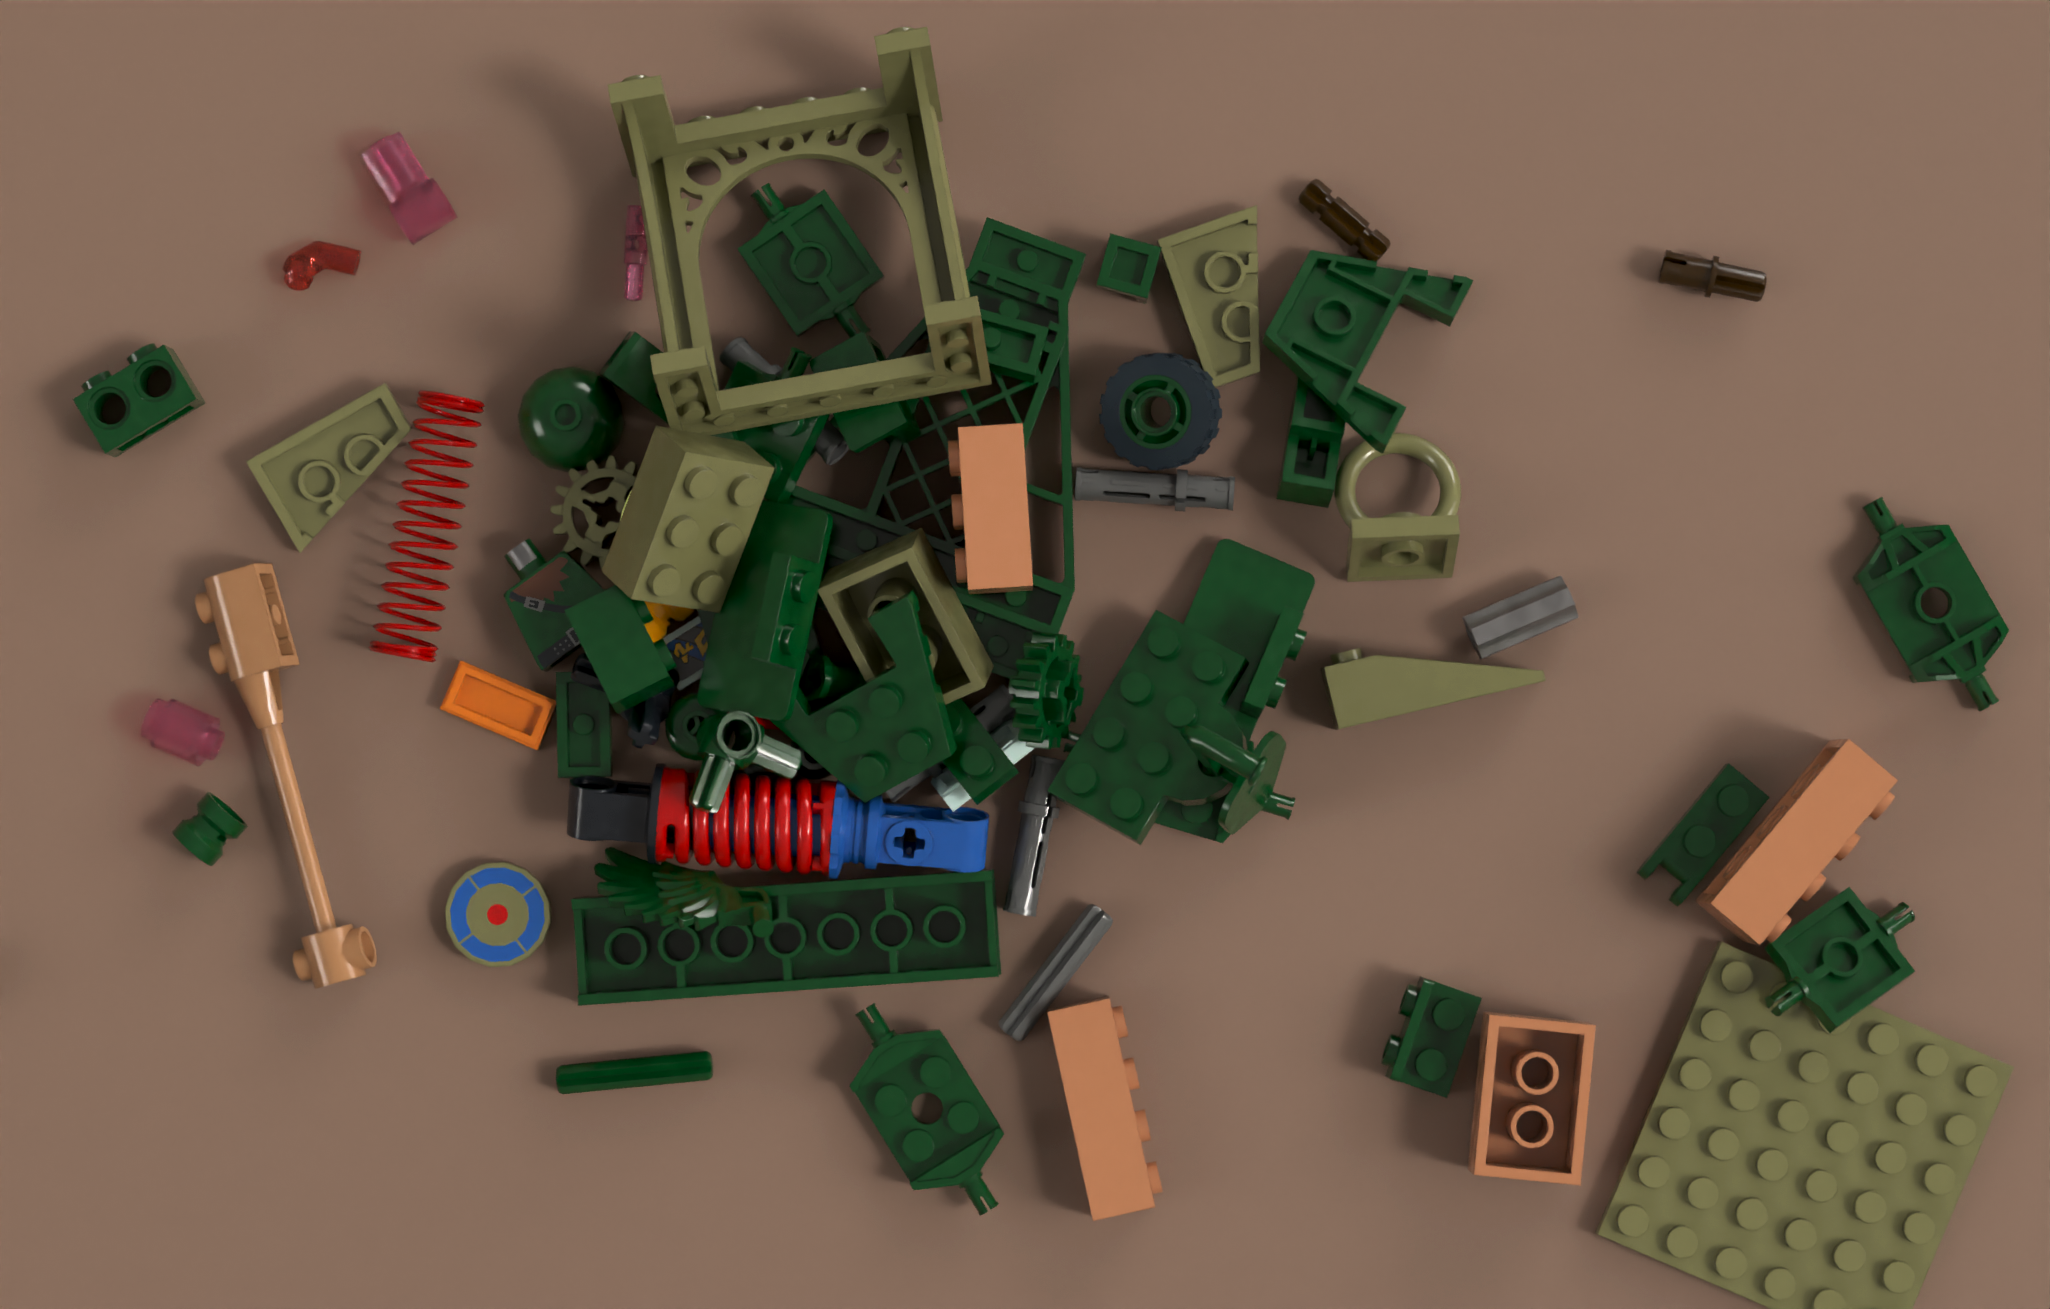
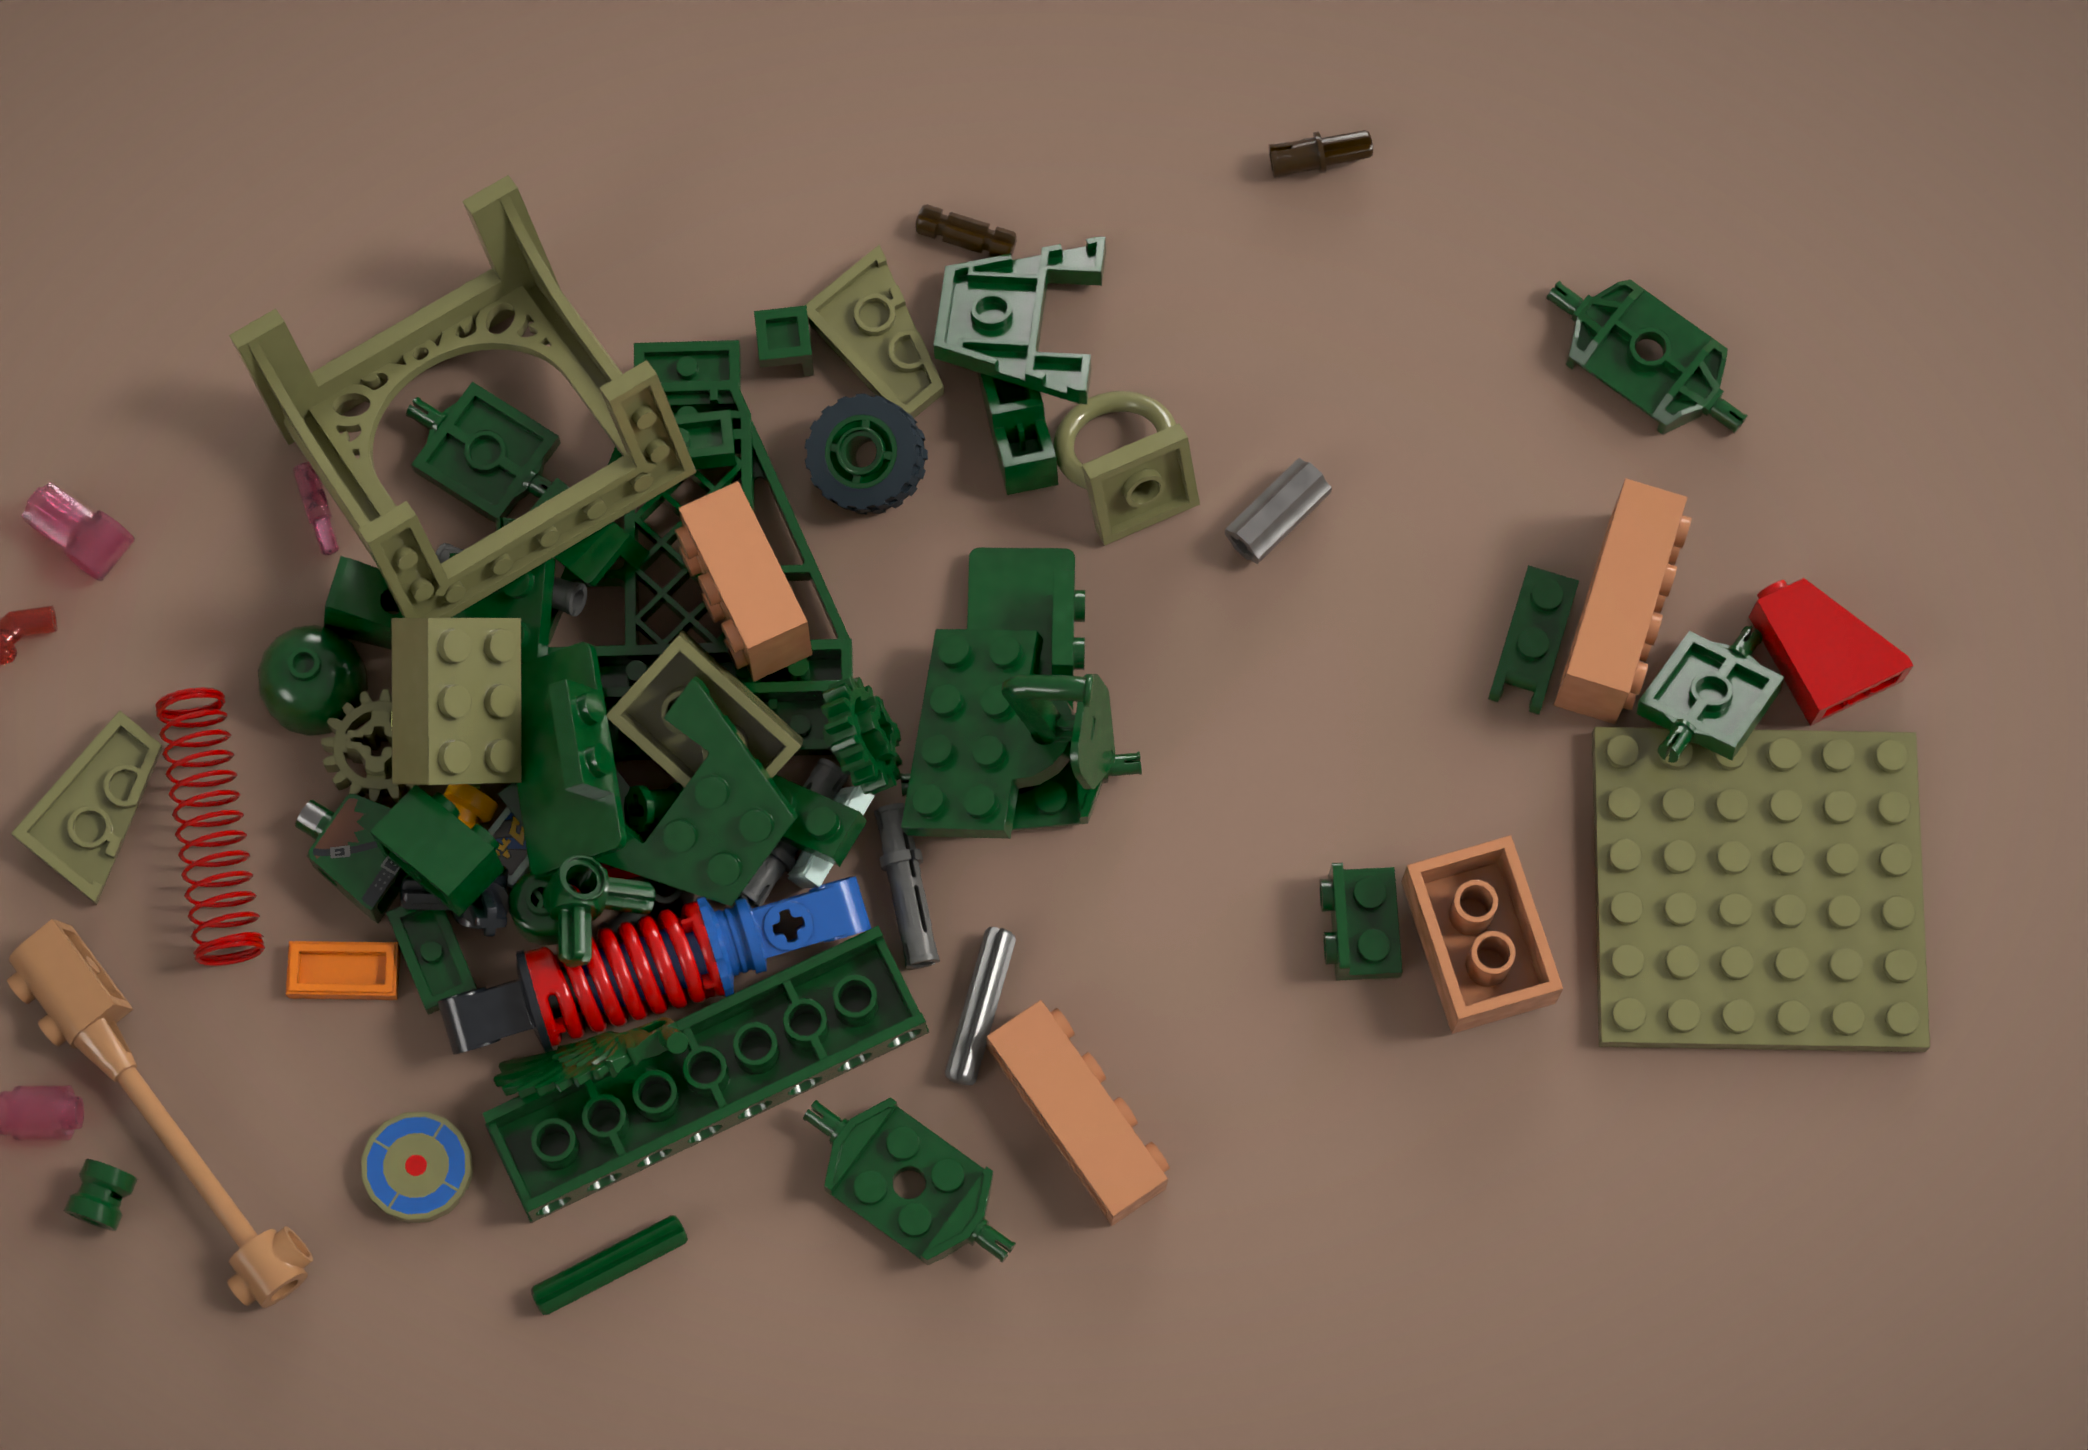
camera: 20 degrees left, 15 degrees down
(1155, 488) = (890, 528): dark grey pin -> none
(1391, 686) = (1192, 613): olive slope -> none
(1963, 956) = (1824, 649): none -> red slope

